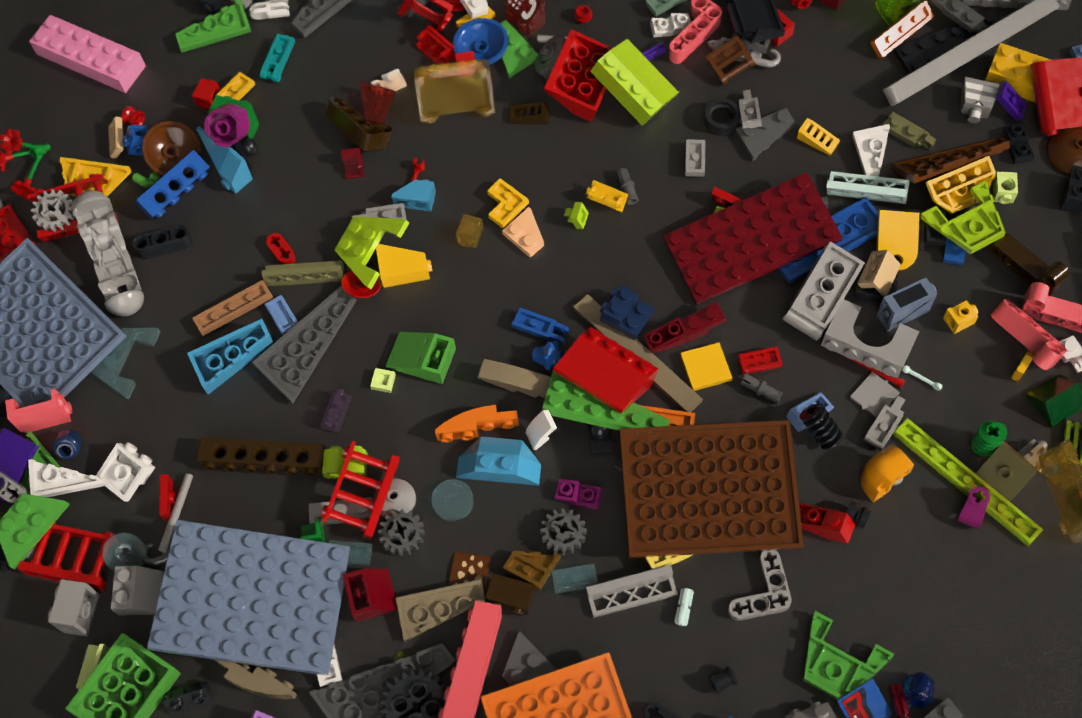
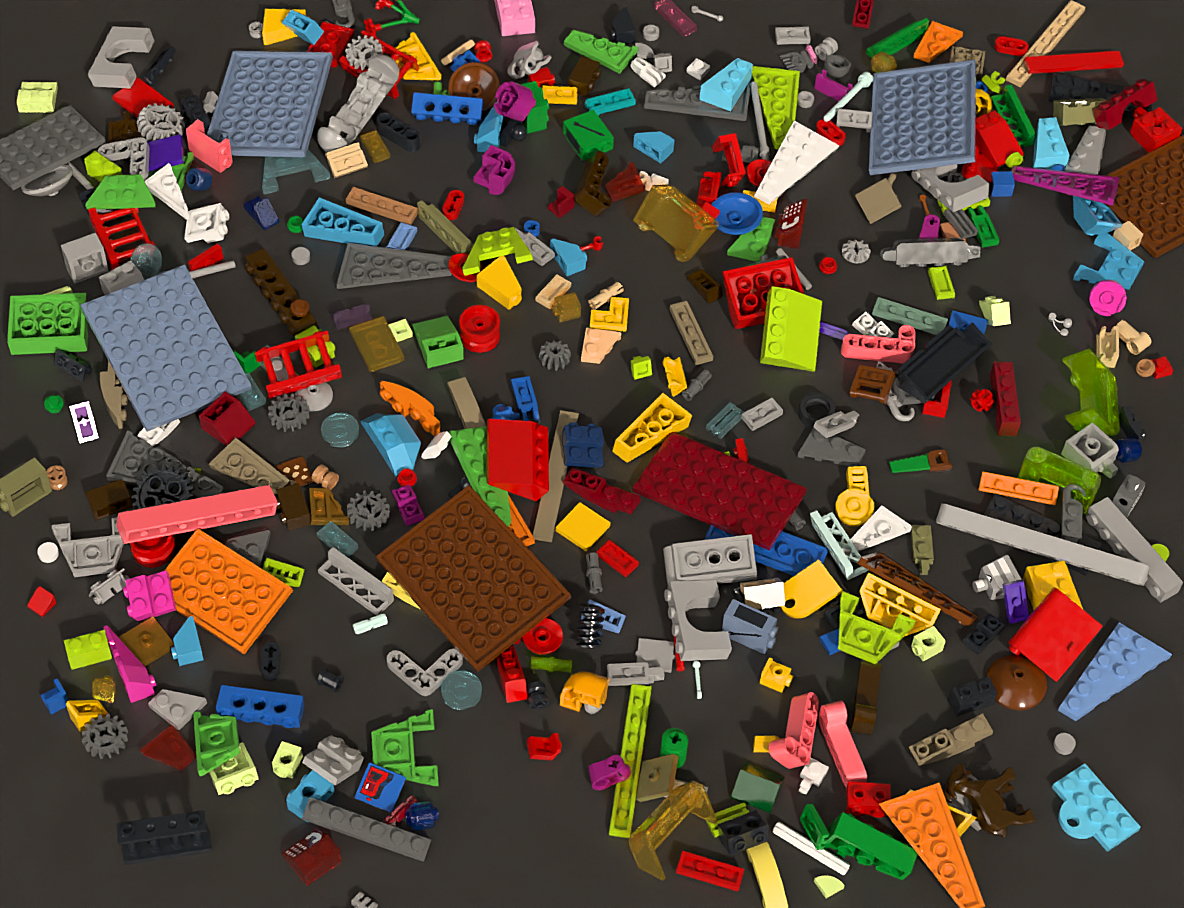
camera: 45 degrees right, 10 degrees down
(150, 414) = (262, 212): none -> clear blue slope
(156, 304) = (346, 160): none -> tan plate
(159, 271) = (375, 146): none -> clear yellow plate
(178, 87) = (527, 58): none -> light grey piece
(191, 393) = (294, 224): none -> green plate
(229, 411) = (300, 256): none -> light grey tile
(232, 58) = (584, 75): none -> dark brown brick
(279, 190) = (496, 170): none -> magenta brick
(298, 448) = (300, 307): none -> reddish brown plate
(299, 96) = (588, 134): none -> green brick
(353, 55) = (654, 144): none -> dark azure slope
(359, 199) = (534, 225): none -> blue bush
(382, 409) = (376, 344): none -> clear yellow tile
(439, 312) = (479, 328): none -> red wheel
(441, 231) = (556, 287): none -> tan tile
(480, 194) = (605, 295): none -> tan pin
(493, 546) = (325, 477): none -> medium nougat wheel
(512, 273) = (554, 355): none -> dark grey gear
(549, 477) = (407, 477): none -> red plate
(556, 657) = (274, 565): none -> lime slope
(571, 155) = (691, 333): none -> dark tan plate
(649, 246) = (651, 428): none -> yellow wedge
(682, 202) = (716, 430): none -> clear light blue tile
(806, 573) = (461, 690): none -> clear light blue tile
(810, 469) = (545, 629): none -> red dish
(826, 78) = (924, 462): none -> piece
(830, 482) = (551, 664): none -> clear neon green pin
(836, 152) = (854, 507): none -> yellow tile
(914, 541) = (544, 748): none -> red bracket

